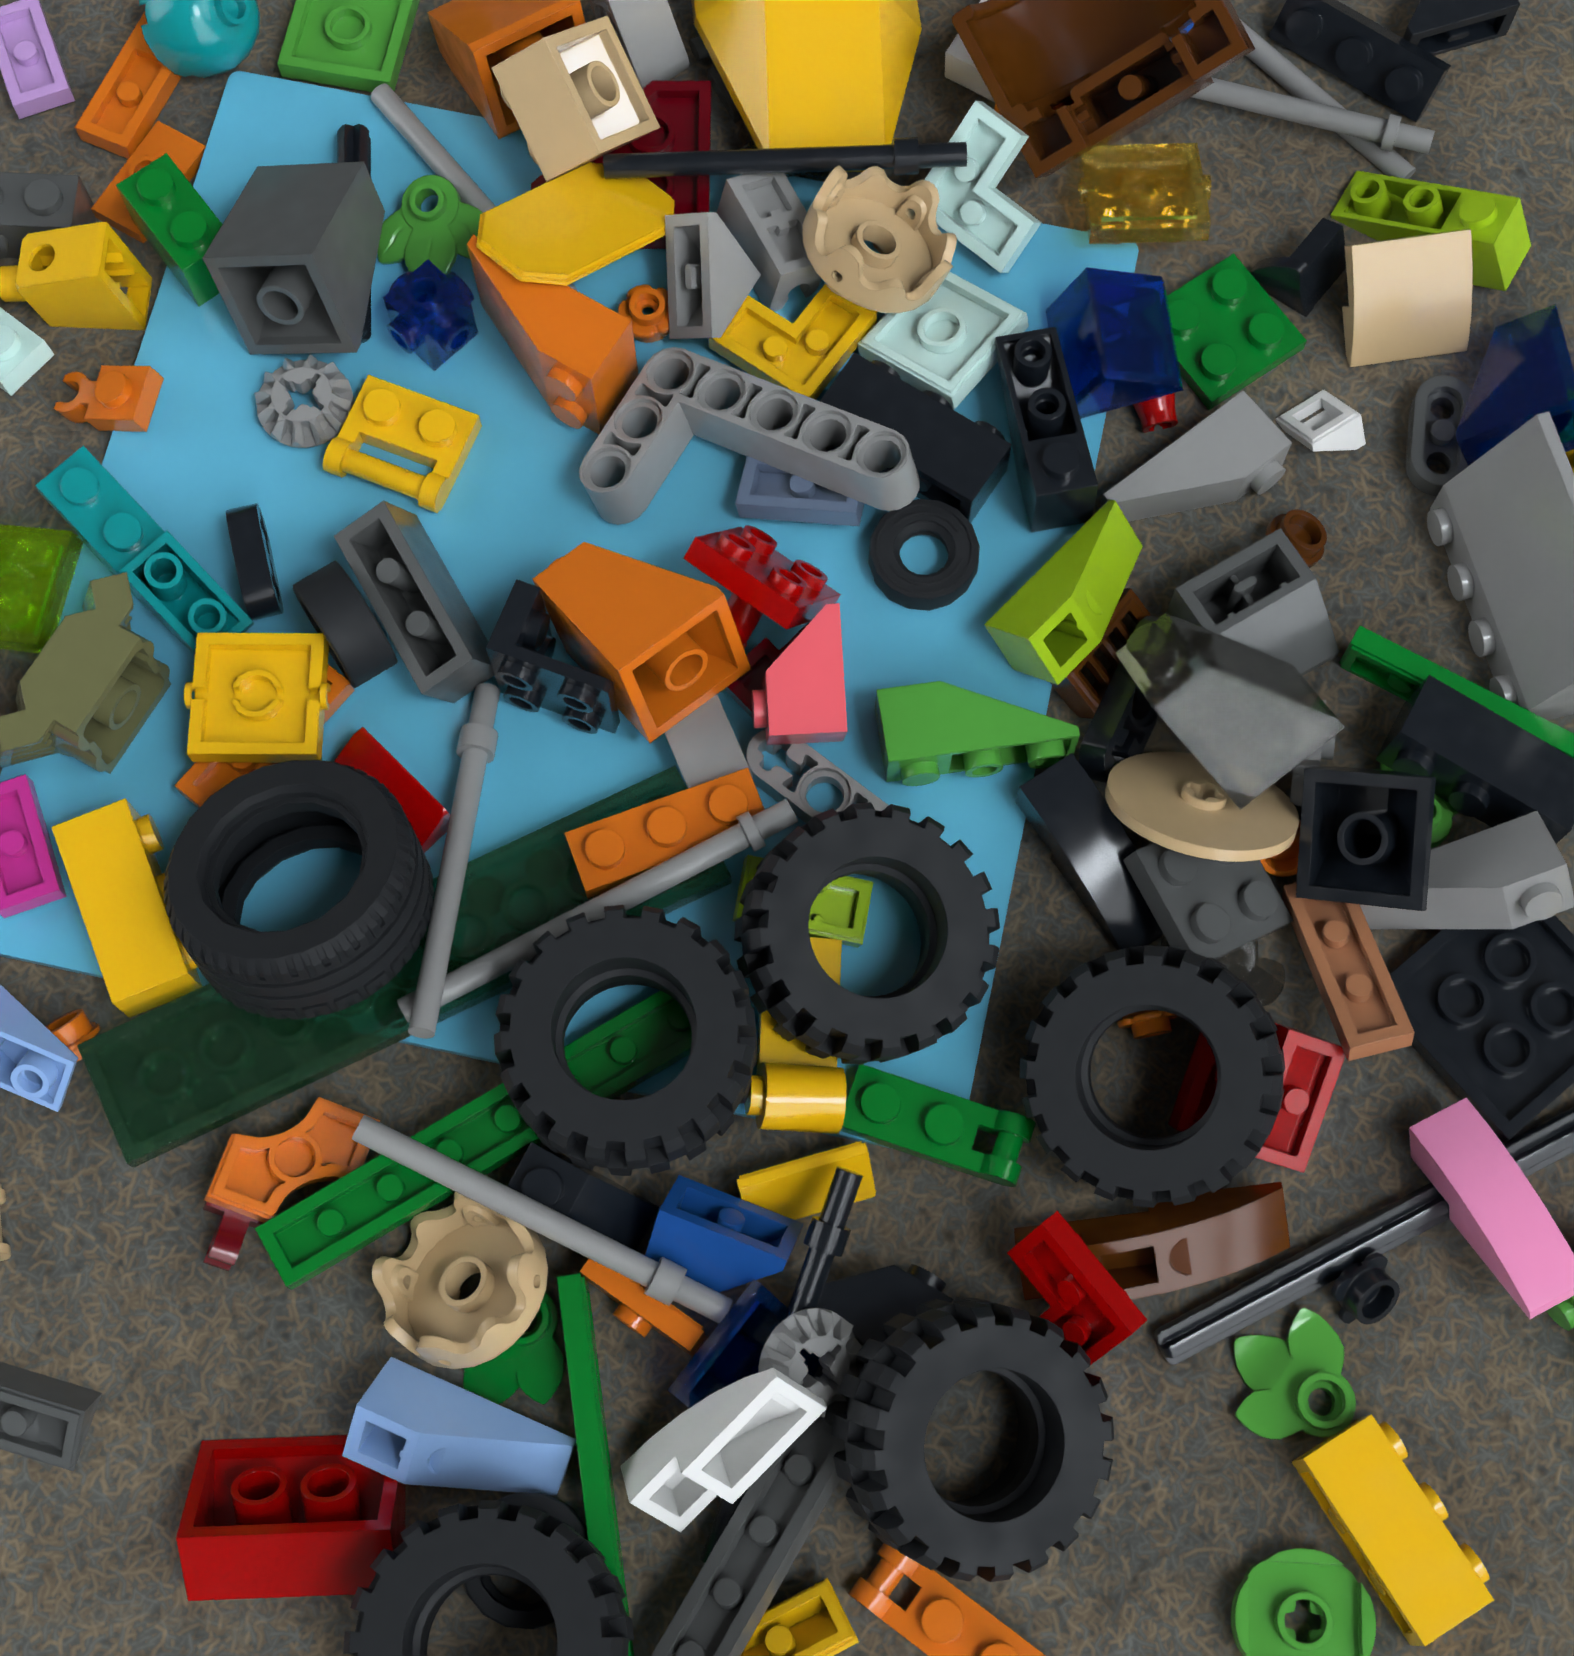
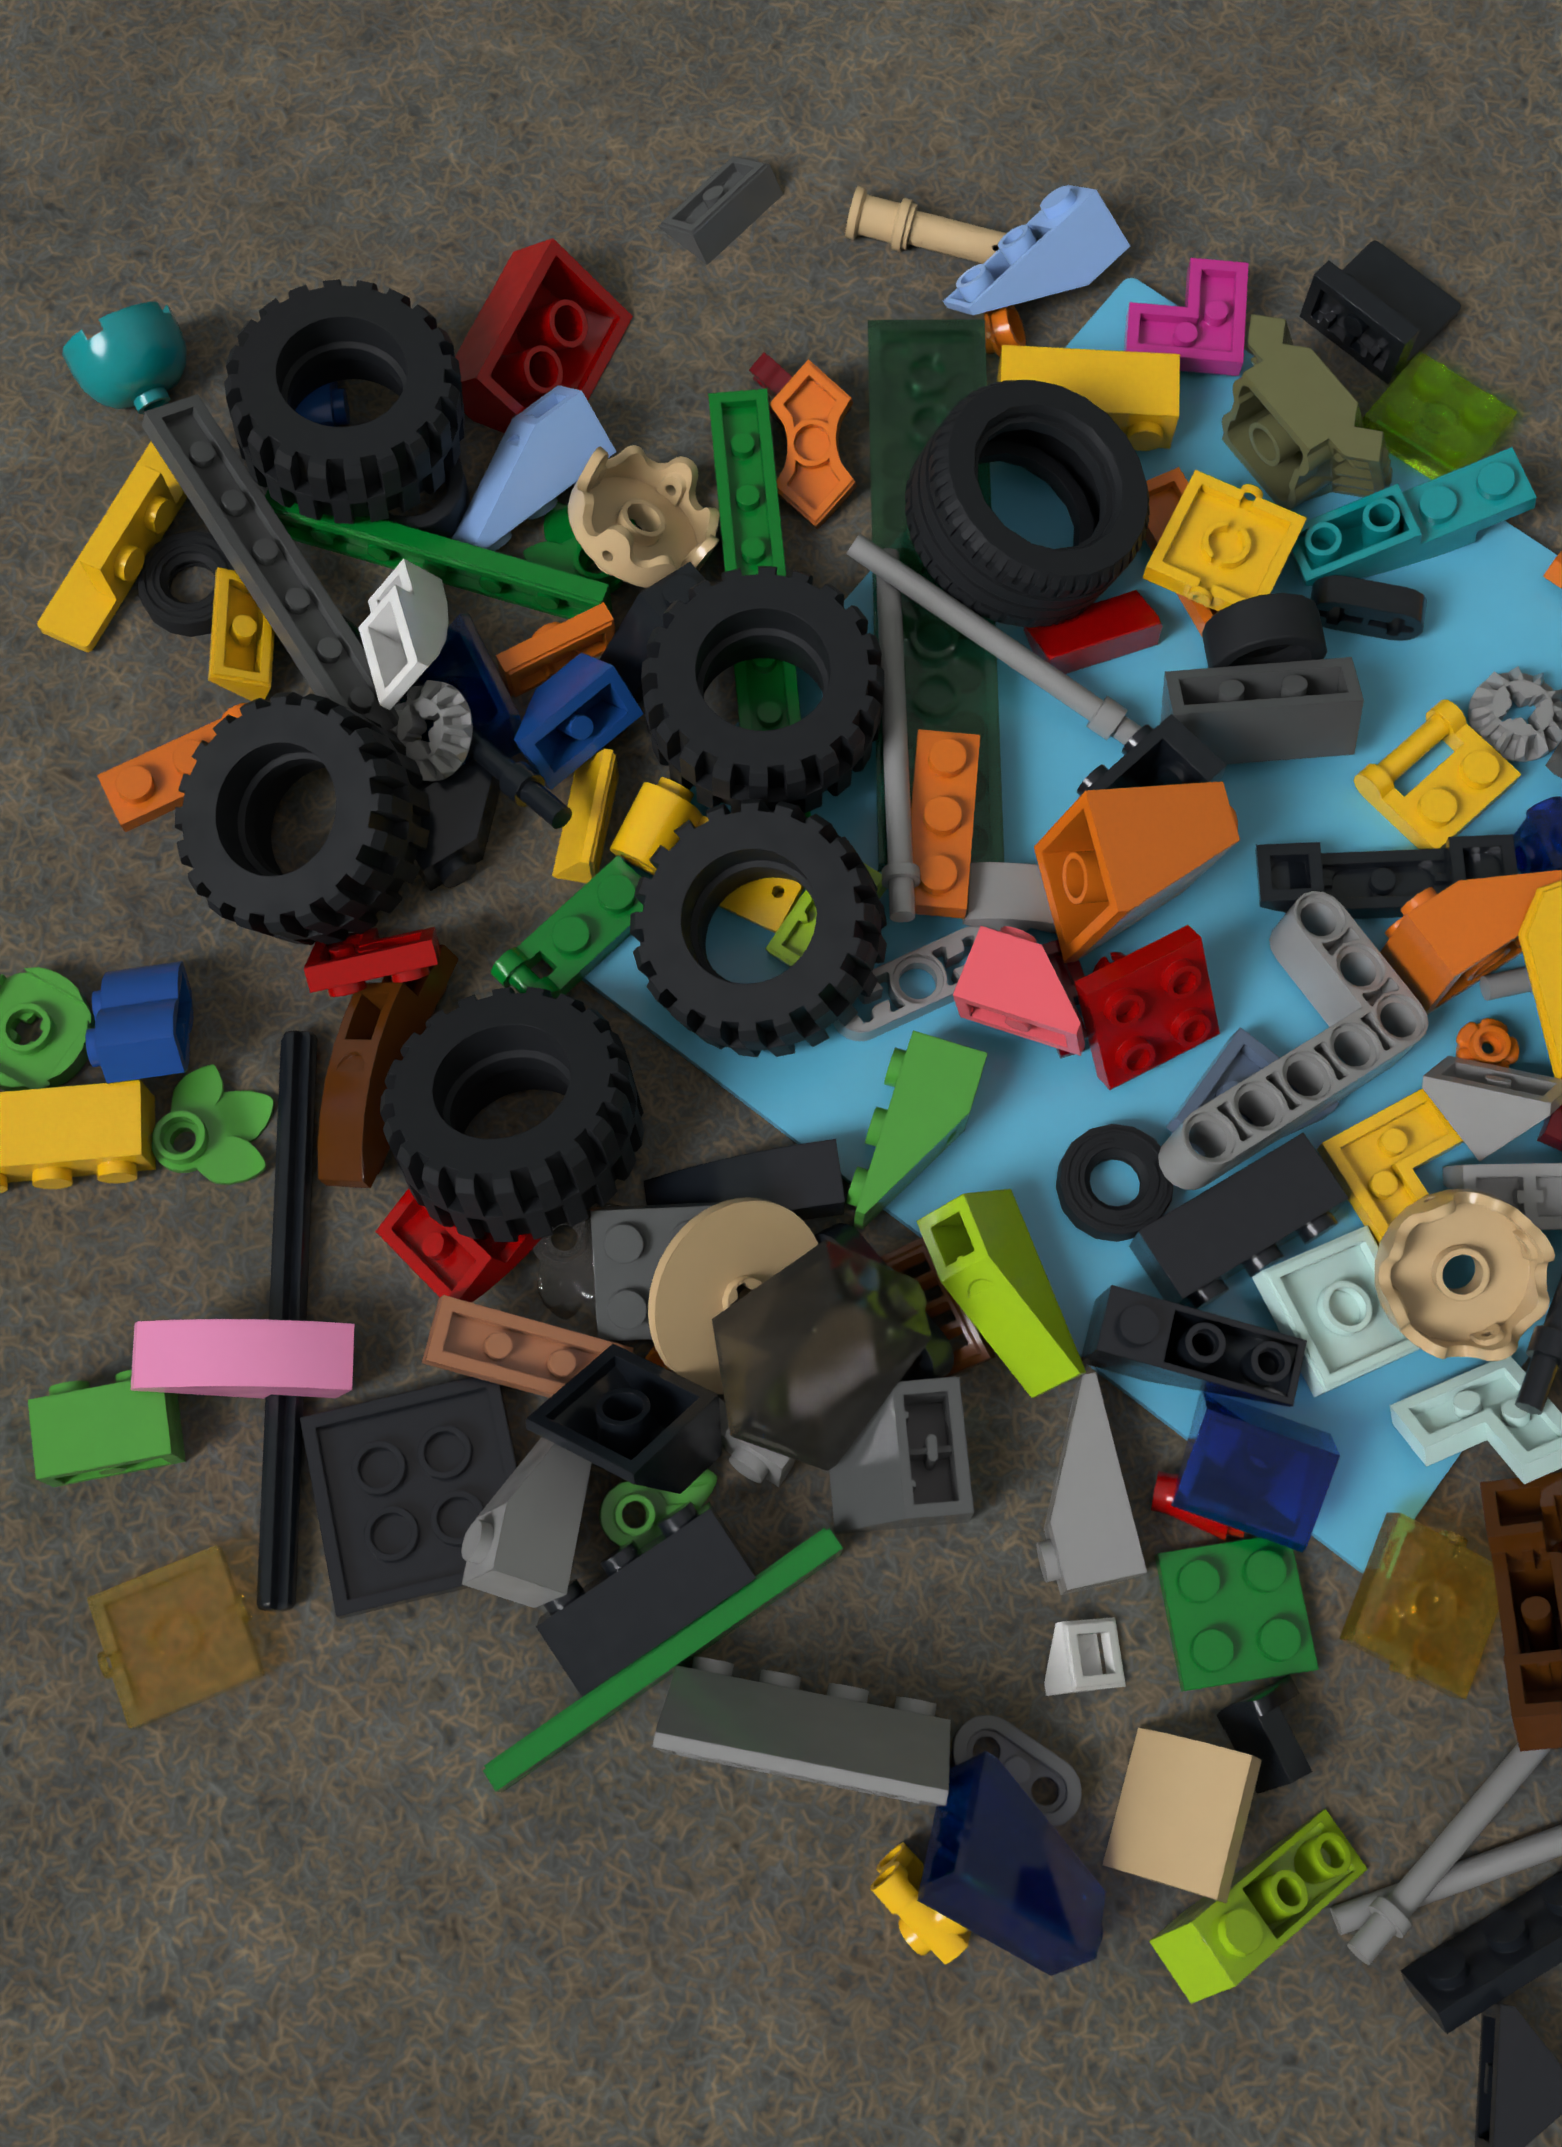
camera: 115 degrees right, 0 degrees up
(526, 441) = (1376, 881): none -> black slope
(663, 1279) = (561, 654): light grey bar -> none
(1243, 1495) = (141, 1023): none -> blue brick
(1304, 533) = (970, 1554): reddish brown plate -> none
(1366, 1291) = (247, 1222): black plate -> none

